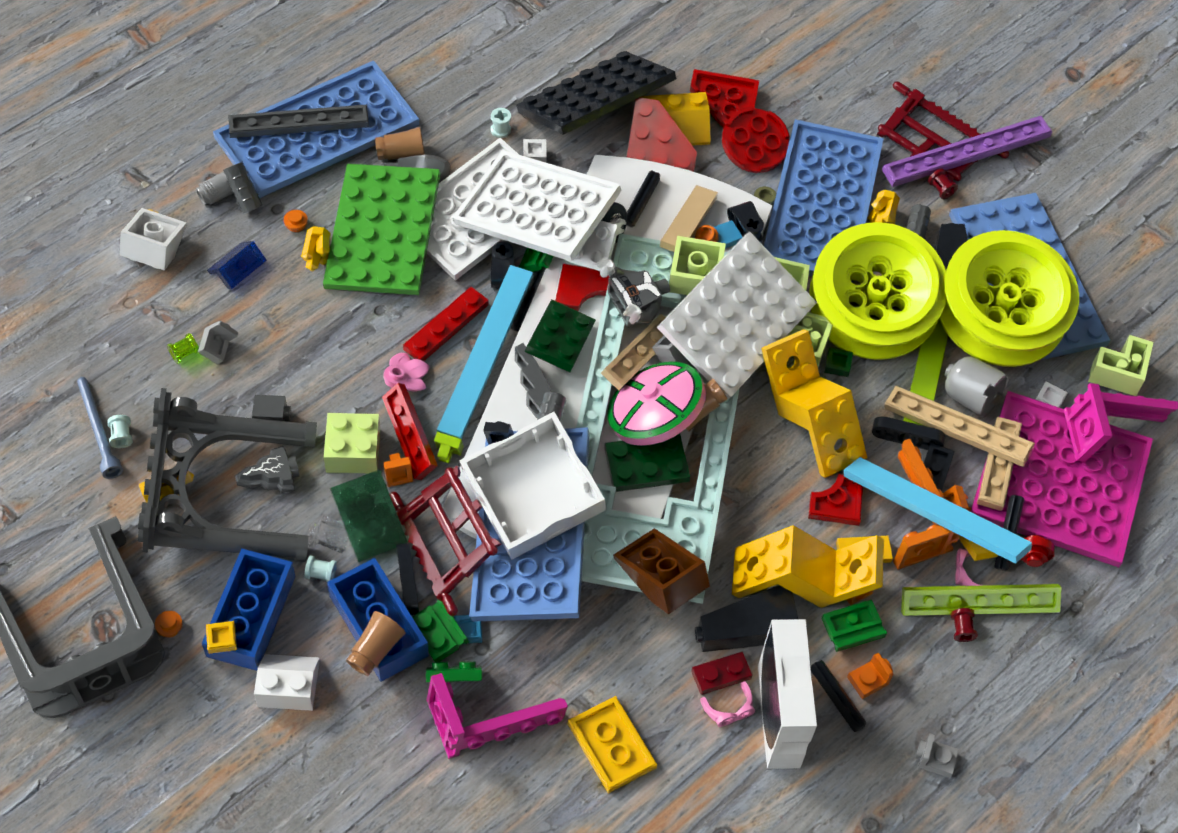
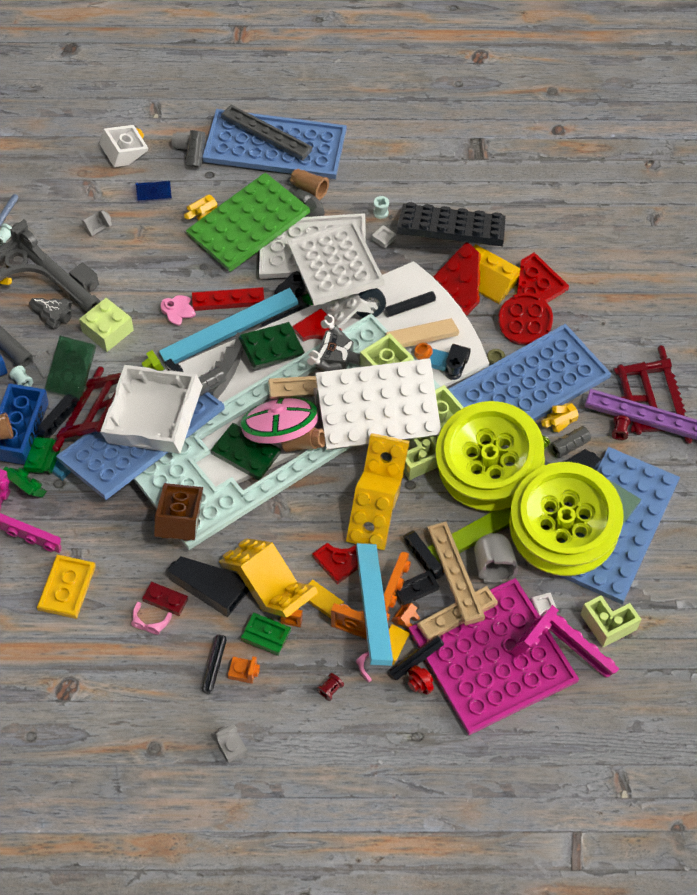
camera: 45 degrees right, 0 degrees up
(183, 348) = (77, 213): clear neon green bush -> none
(295, 220) = (209, 186): orange plate -> none
(397, 470) = (114, 356): orange tile -> none
(409, 431) = (144, 338): red plate -> none
(786, 694) = (167, 630): white tile -> none
(838, 362) = (429, 483): dark green plate -> none
(982, 599) = (357, 682): lime plate -> none

